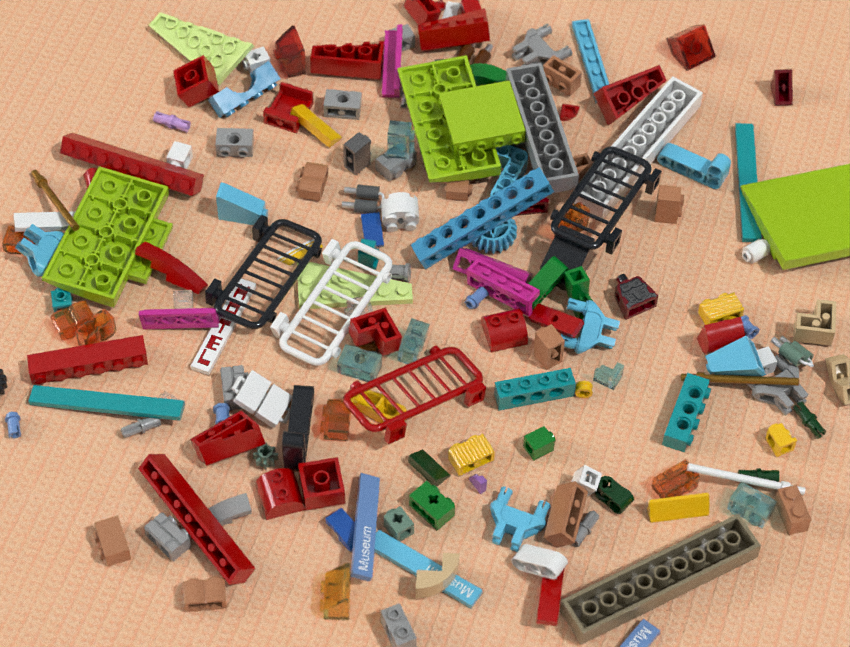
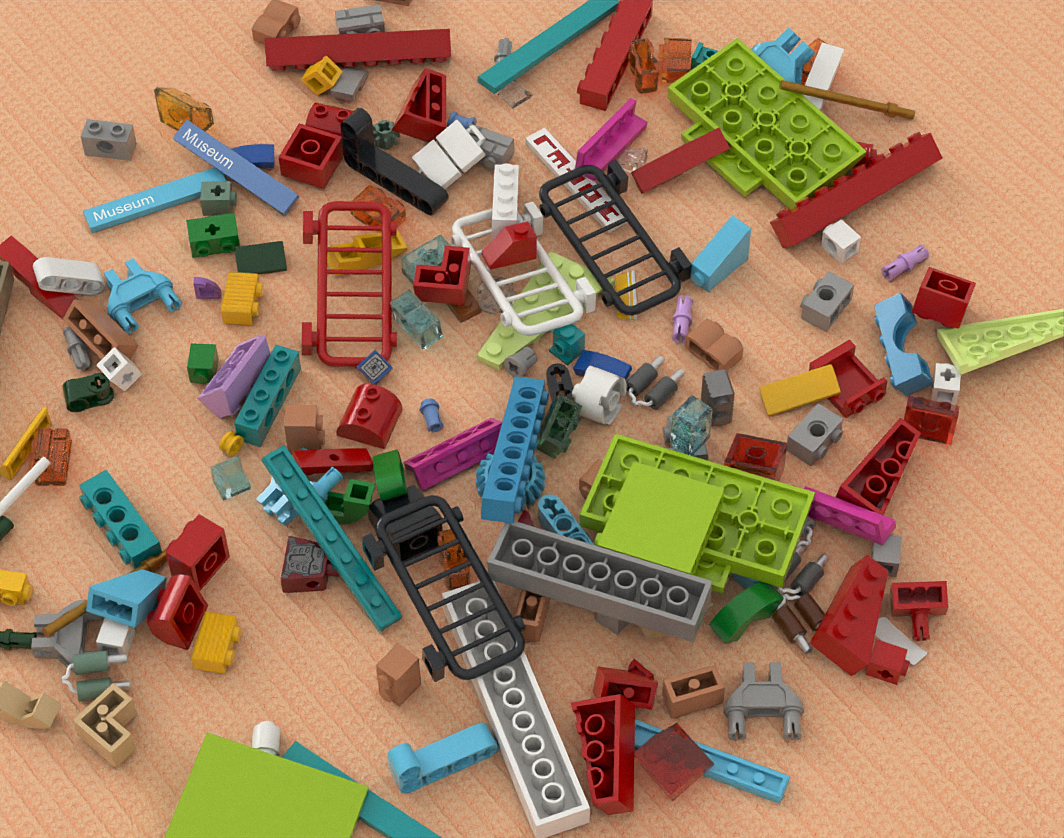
camera: 125 degrees right, 0 degrees up
(241, 524) = (321, 75): none -> yellow brick
(301, 324) = (505, 197): none -> white arch
(302, 208) = (682, 319): none -> lavender pin
(326, 306) = (511, 246): none -> red slope
(387, 108) = (757, 456): none -> clear red slope
(400, 245) = (565, 384): none -> black beam
(433, 582) = (128, 183): tan brick -> none
(436, 217) = (557, 426): none -> clear green brick
(466, 346) = (374, 367): none -> tile
(502, 285) = (418, 432): dark pink fence -> none
(539, 406) = (236, 377): none -> lavender slope
(586, 107) = (633, 687): none -> red slope
(610, 63) = (673, 760): none -> clear red slope
(612, 283) = (331, 538): none -> teal tile
(678, 347) = (198, 551): none -> red brick
(750, 330) = (172, 655): medium blue bush -> none

